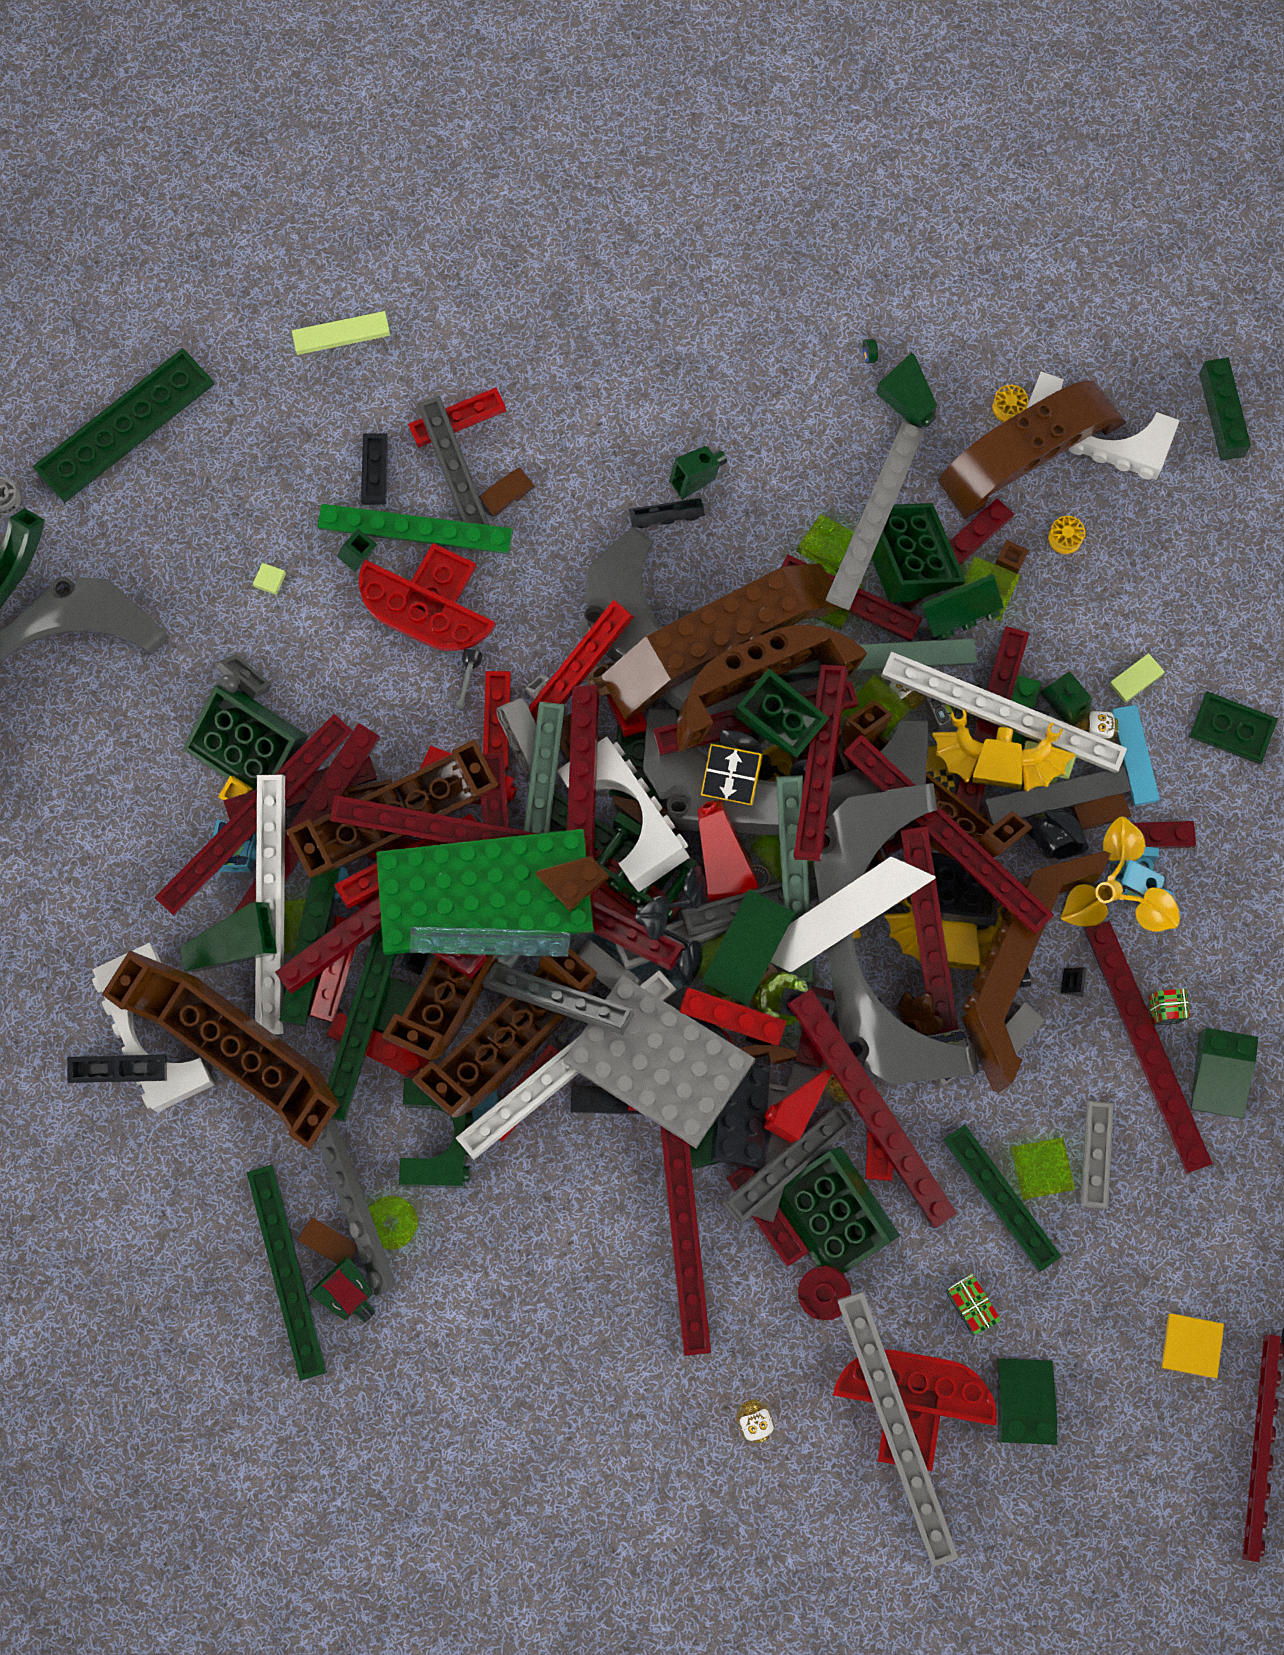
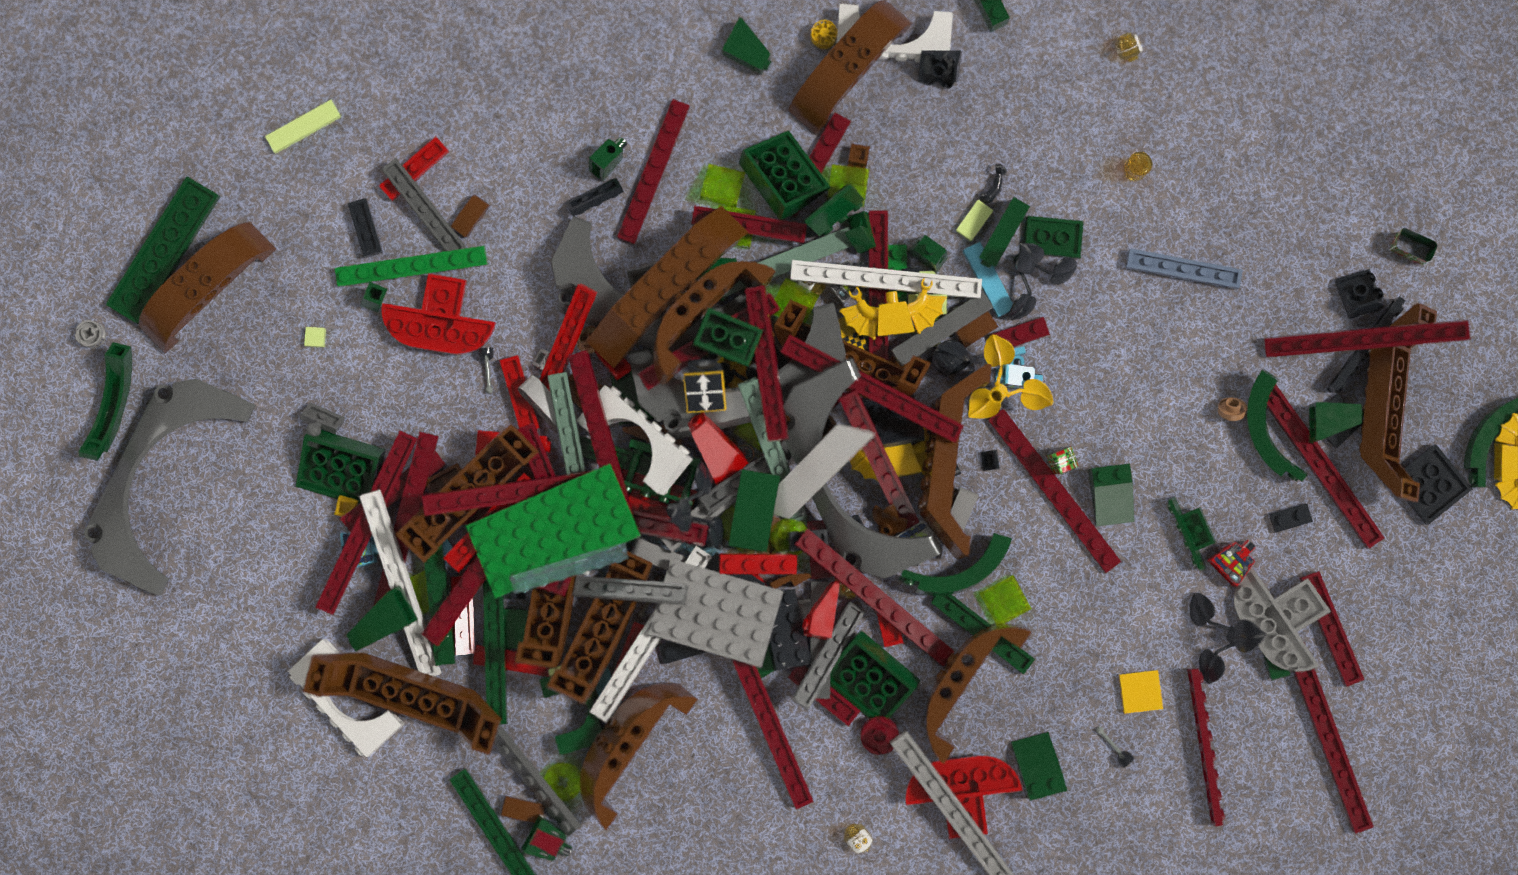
camera: 20 degrees left, 10 degrees up
(117, 1068) = (331, 737): black slope -> none
(152, 470) = (201, 281): none -> reddish brown slope
(481, 1189) = (621, 741): none -> reddish brown slope
(573, 880) = (615, 505): reddish brown wing -> none
(748, 505) = (653, 171): none -> dark red plate
(870, 350) = (708, 23): dark green tile -> none
(875, 516) = (750, 157): light grey plate -> none
(973, 1304) = (983, 712): piece -> none
(987, 649) = (861, 232): none -> dark green slope
(988, 1214) = (940, 704): none -> reddish brown slope
(993, 1122) = (957, 583): none -> dark green arch
(1065, 535) = (893, 126): yellow wheel -> none
(1097, 1155) = (1040, 579): light grey tile -> none
(1100, 724) = (958, 266): head -> none
(1145, 480) = (940, 67): none -> black slope
(1146, 1427) = (1124, 757): none -> hinge
(1171, 699) = (1003, 232): none -> dark green slope
(1175, 647) = (995, 189): none -> black arm
(1197, 733) = (1025, 263): none -> black plant

